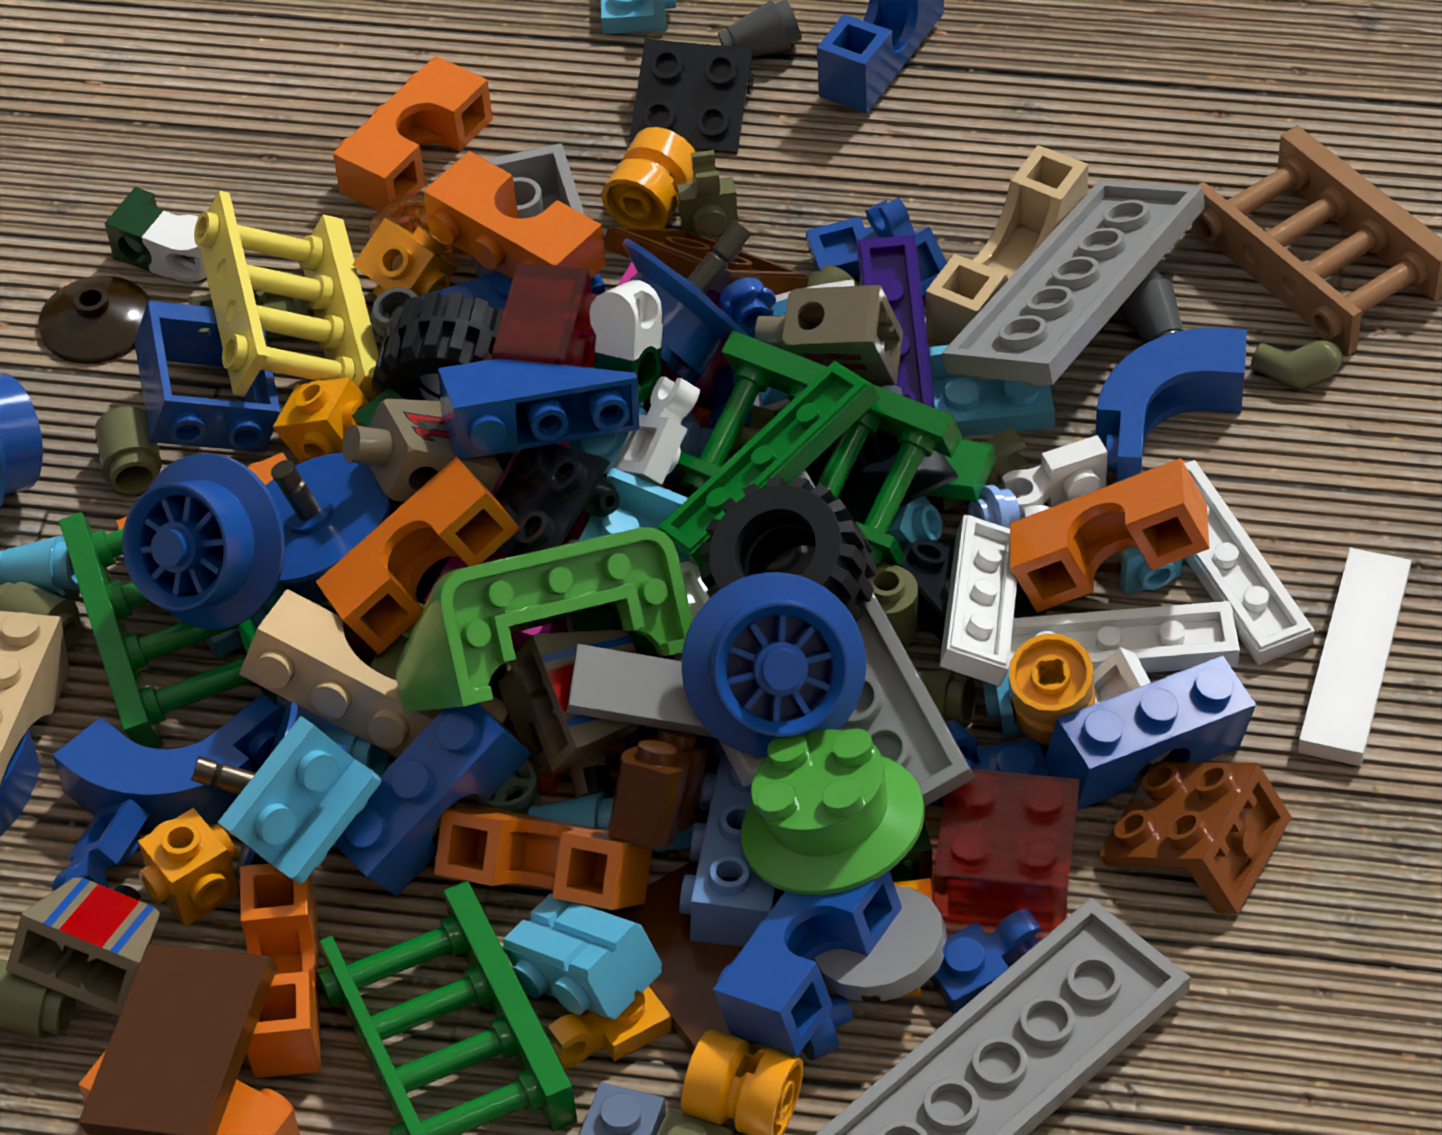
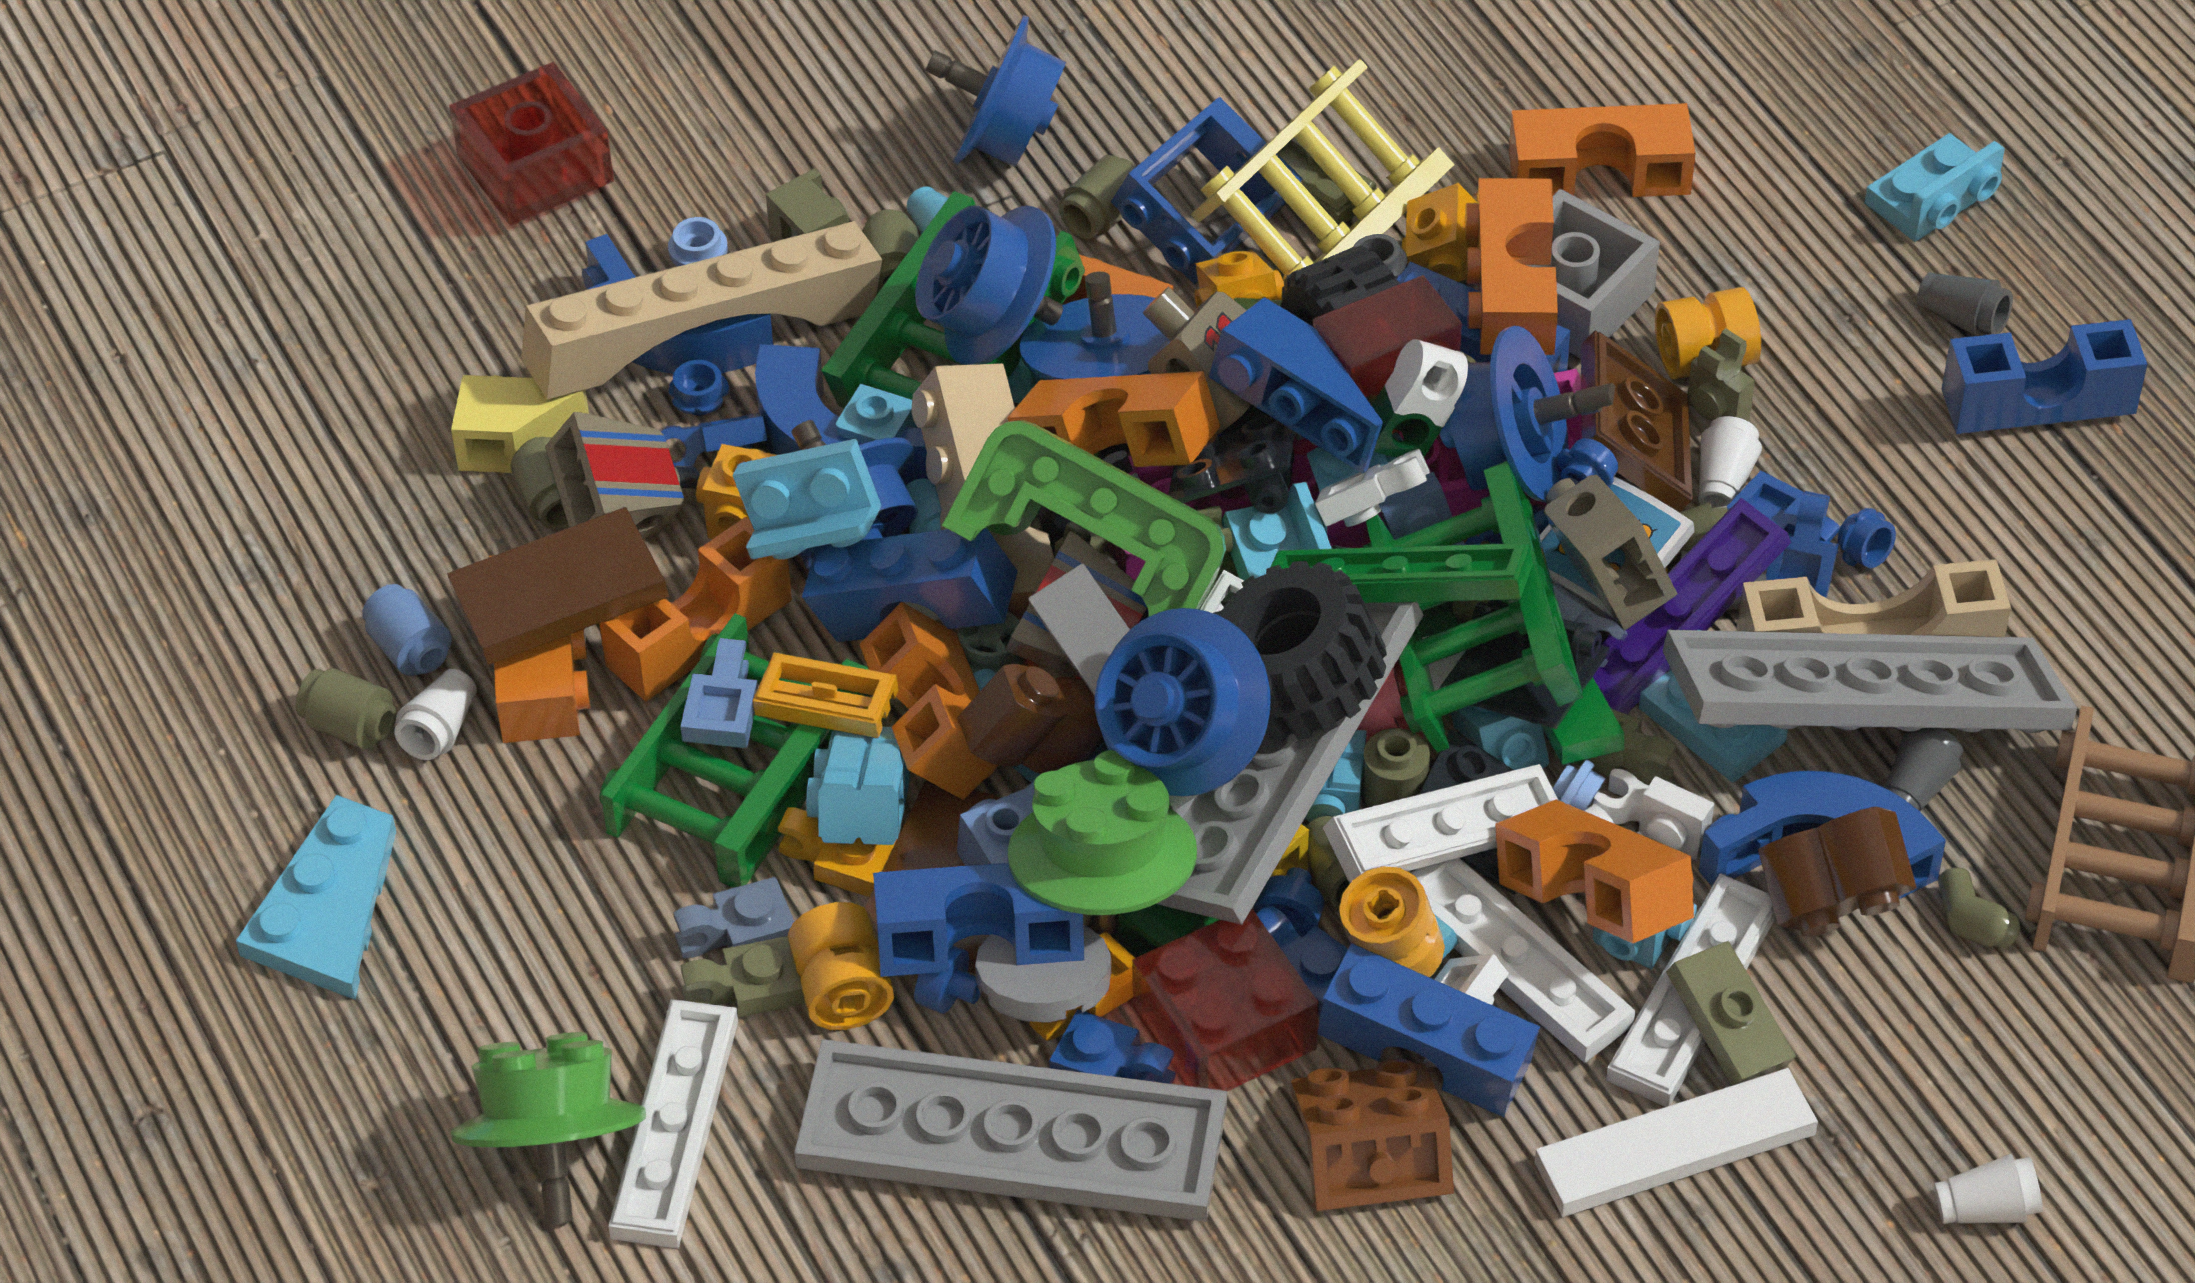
camera: 50 degrees right, 0 degrees up
(27, 823) = (698, 387): none -> blue plate
(93, 319) = (1237, 78): dark brown dish -> none
(155, 238) = (1322, 47): leg -> none
(216, 721) = (874, 415): none -> medium azure bracket
(407, 1005) = (721, 704): none -> medium blue plate
(481, 929) = (822, 703): none -> light orange tile
(694, 92) = (1841, 302): black hinge -> none
(774, 240) = (1726, 459): none -> white cone
(920, 210) = (1866, 538): none -> blue plate
(1222, 403) = (1836, 870): none -> reddish brown brick
(1279, 548) = (1730, 1014): none -> olive plate

